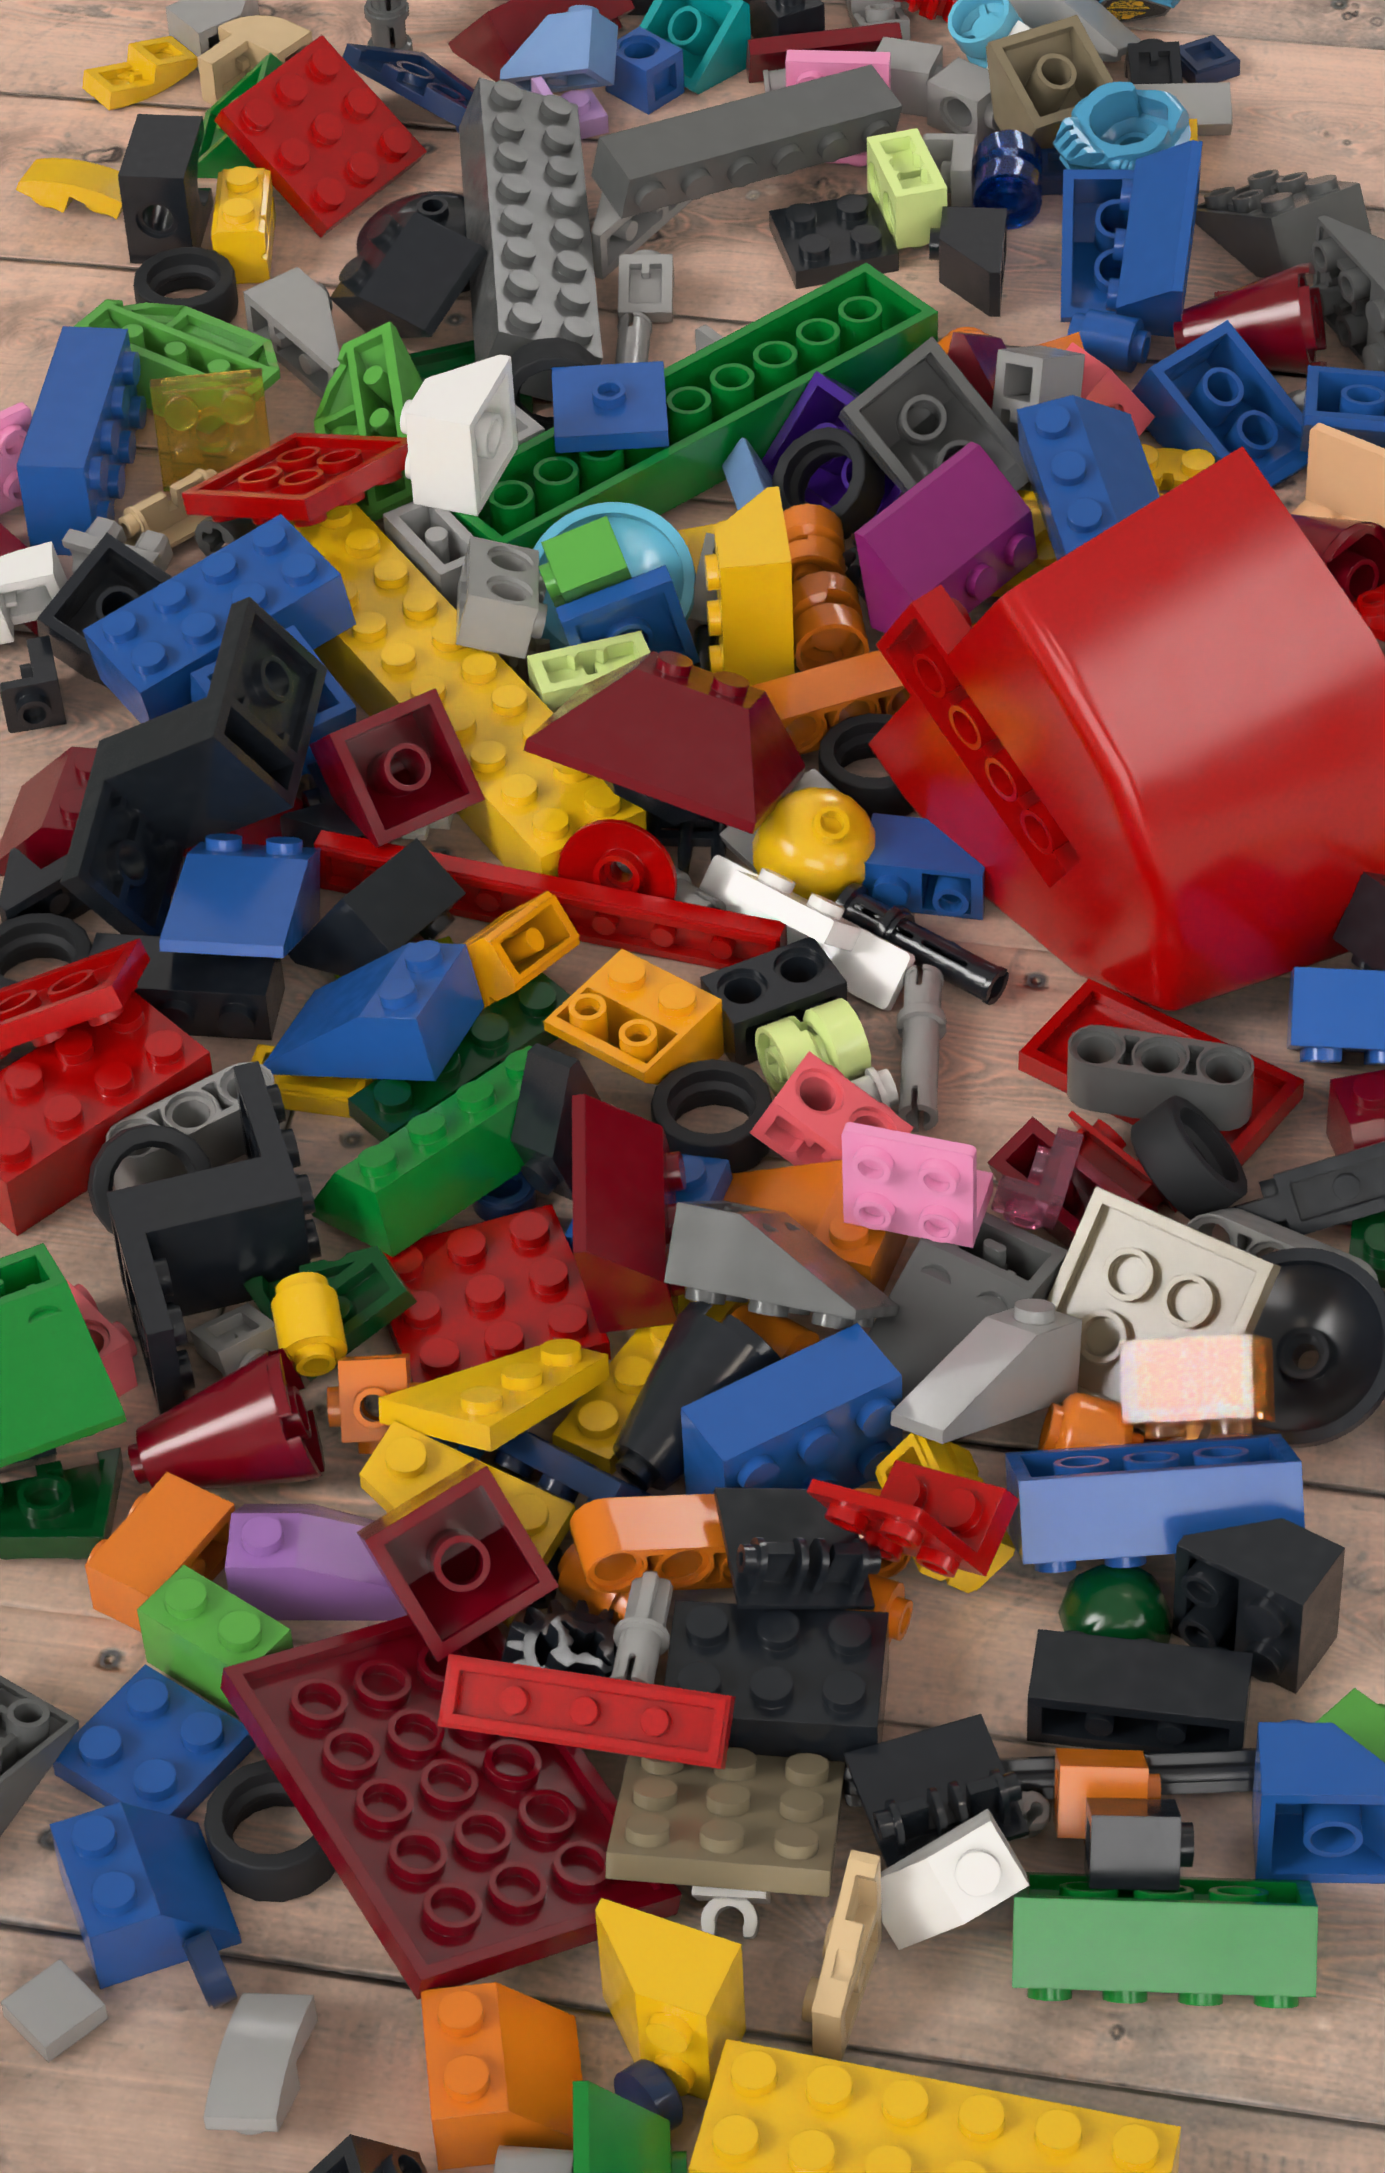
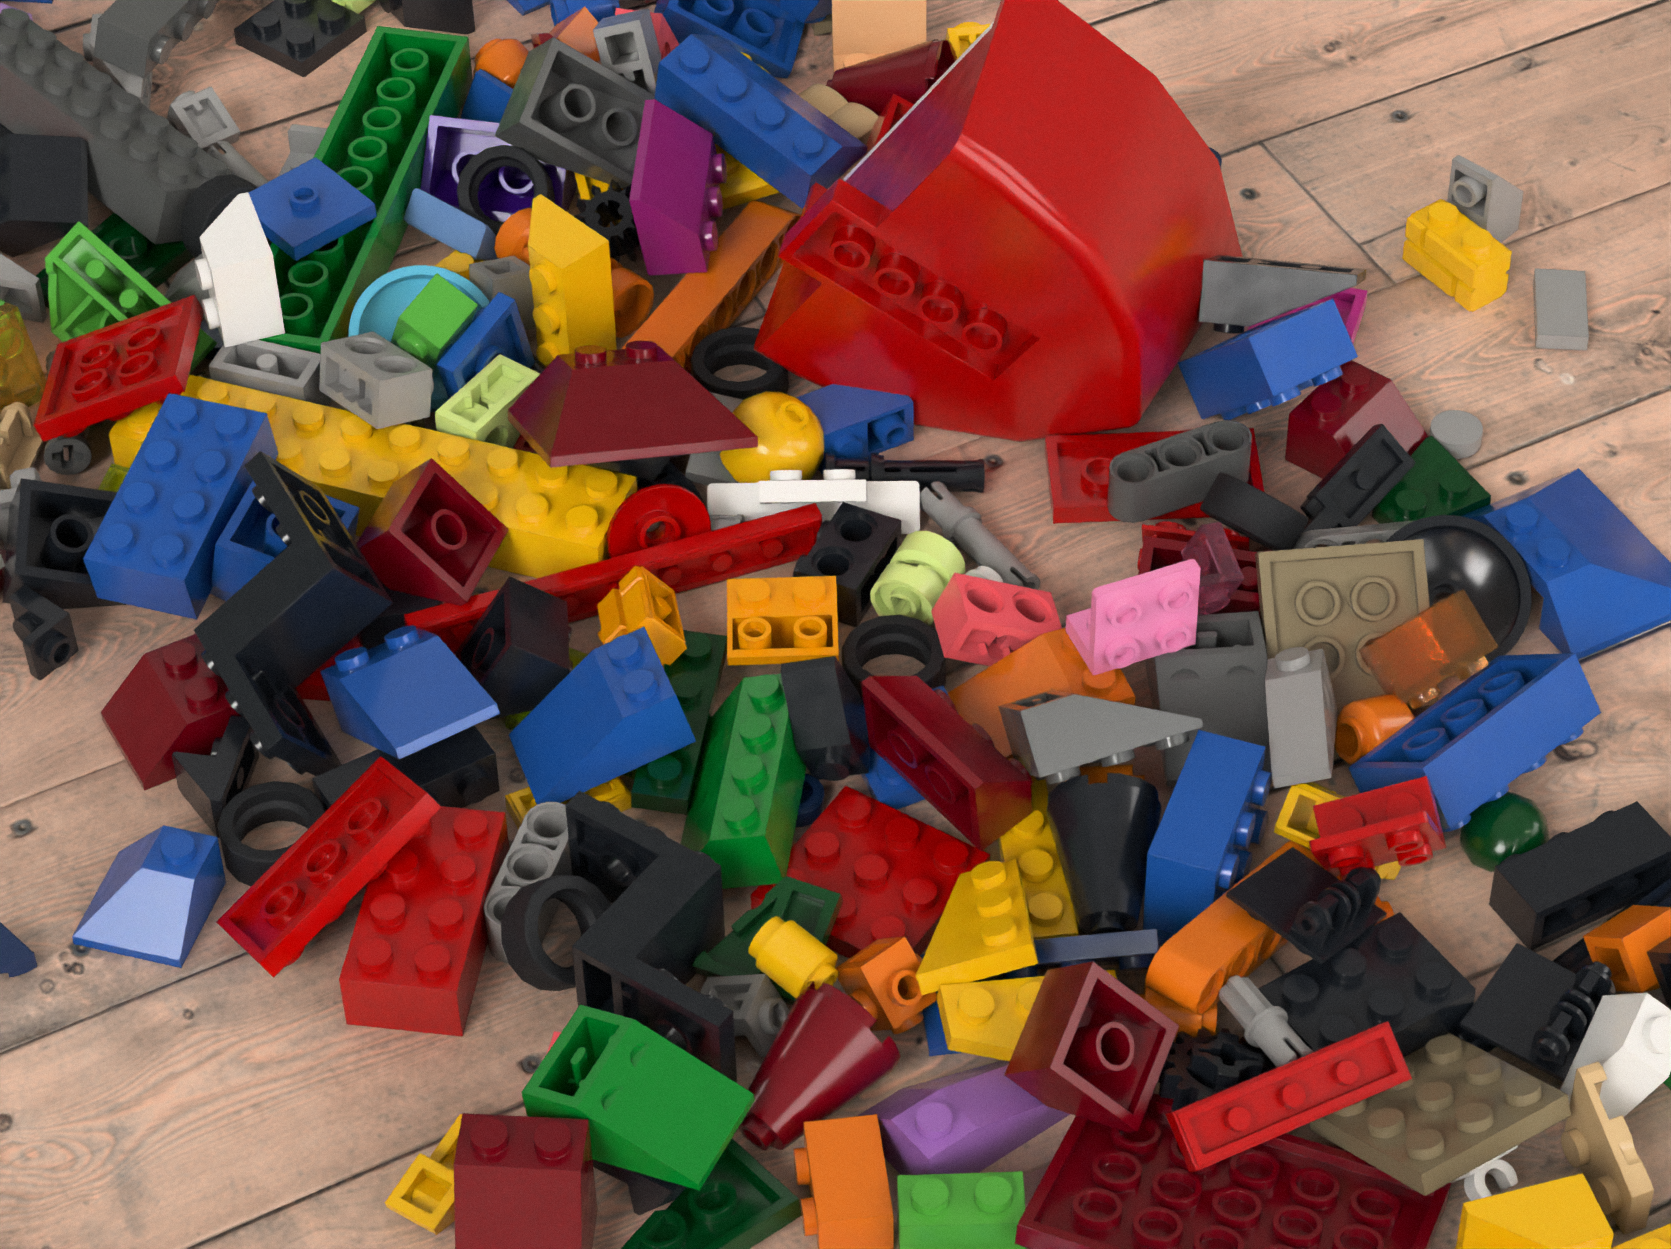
camera: 40 degrees left, 0 degrees up
(1261, 1593) = (1606, 761): black slope -> none

